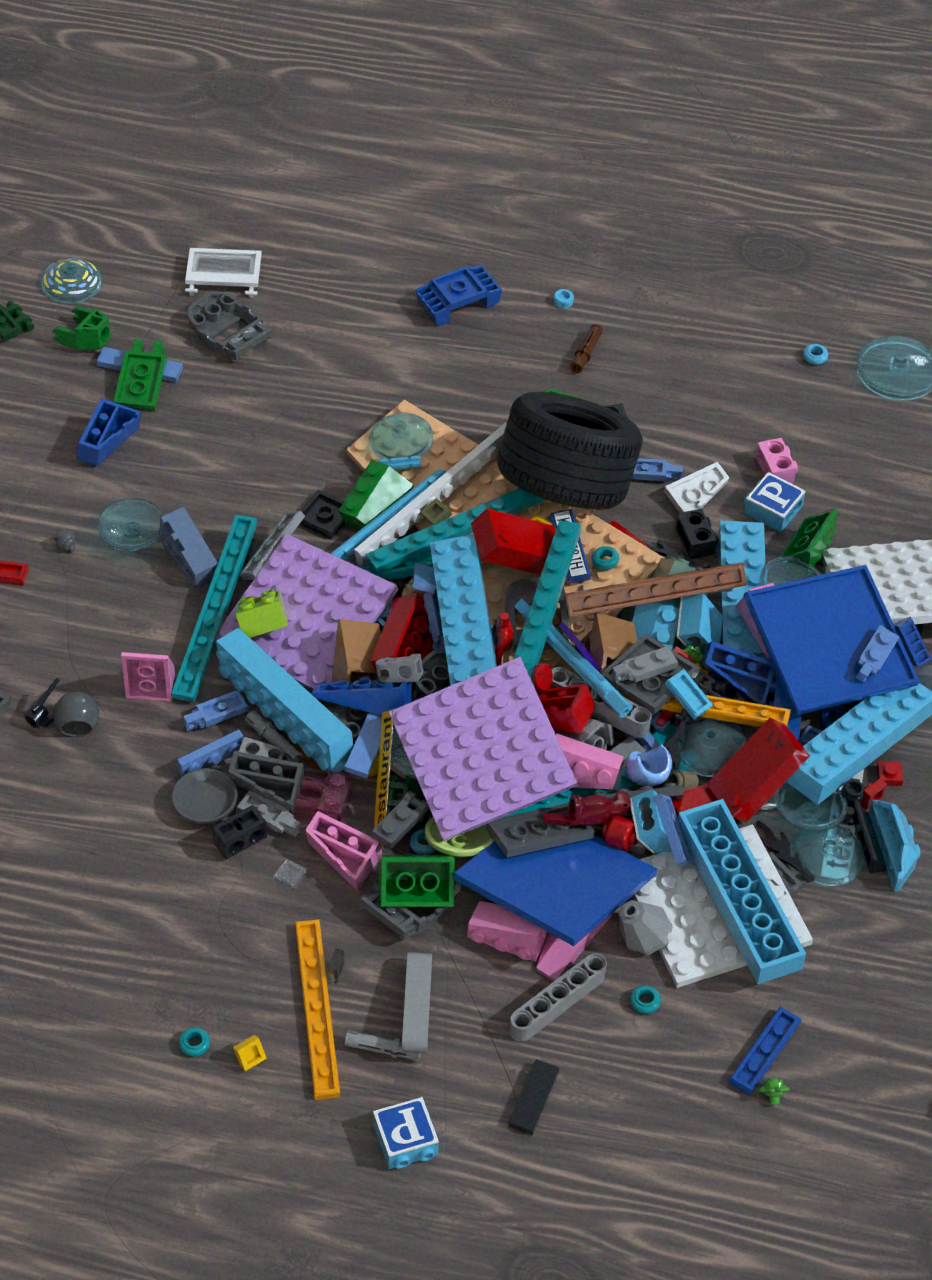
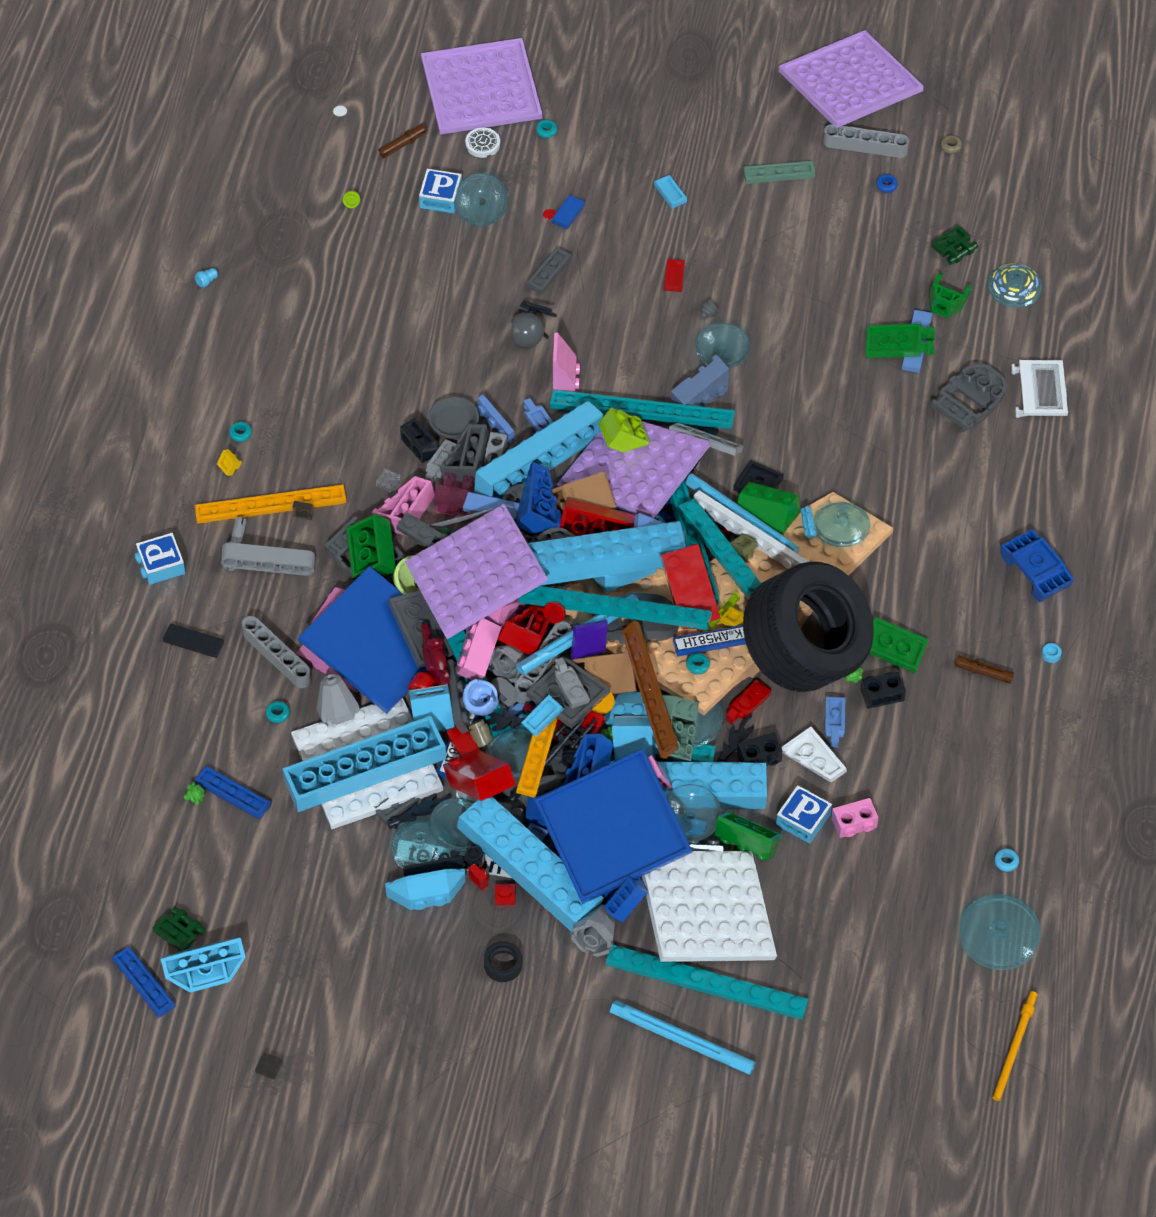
camera: 90 degrees right, 5 degrees up
(106, 431) = (825, 320): blue wedge -> none
(400, 669) = (550, 513): light grey leg -> none
(504, 636) = (602, 585): red piece -> none
(673, 830) = (434, 707): medium blue tile -> none
(876, 652) = (600, 860): medium blue hinge -> none

